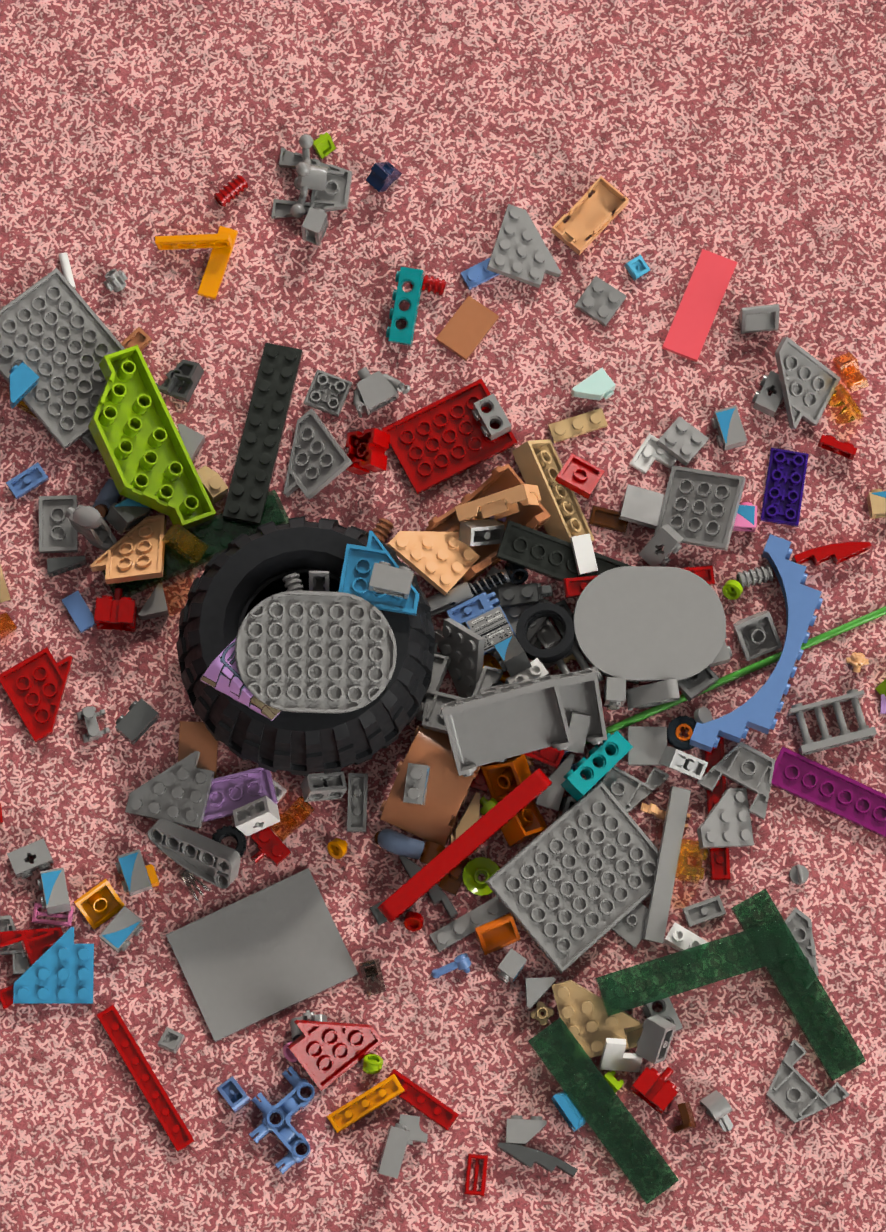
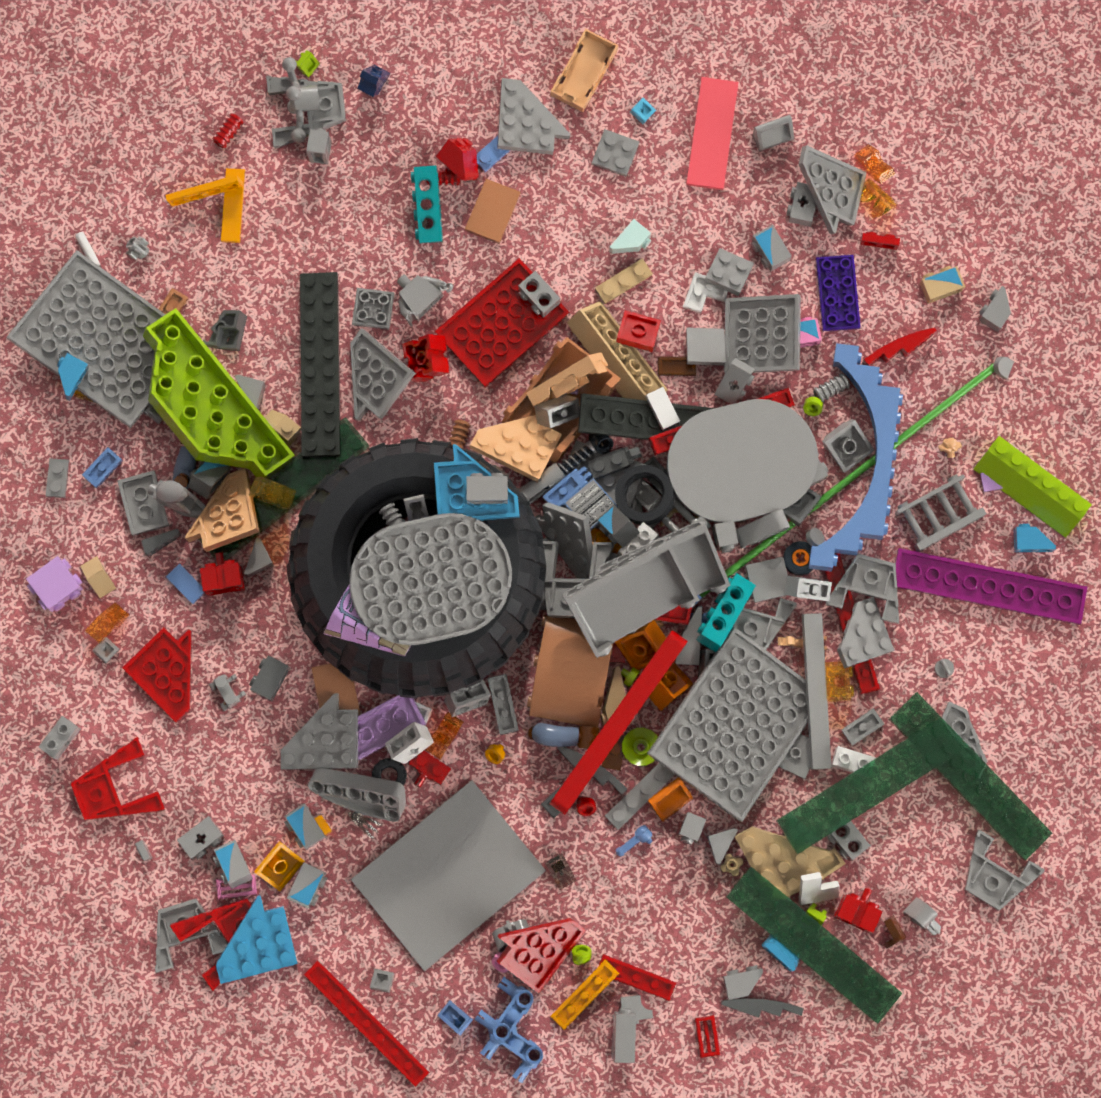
camera: 10 degrees left, 5 degrees up
(416, 784) = (557, 675): light grey brick -> none
(448, 269) = (460, 158): none -> red slope
(578, 729) = (700, 580): light grey tile -> none
(655, 1039) = (847, 864): light grey brick -> none

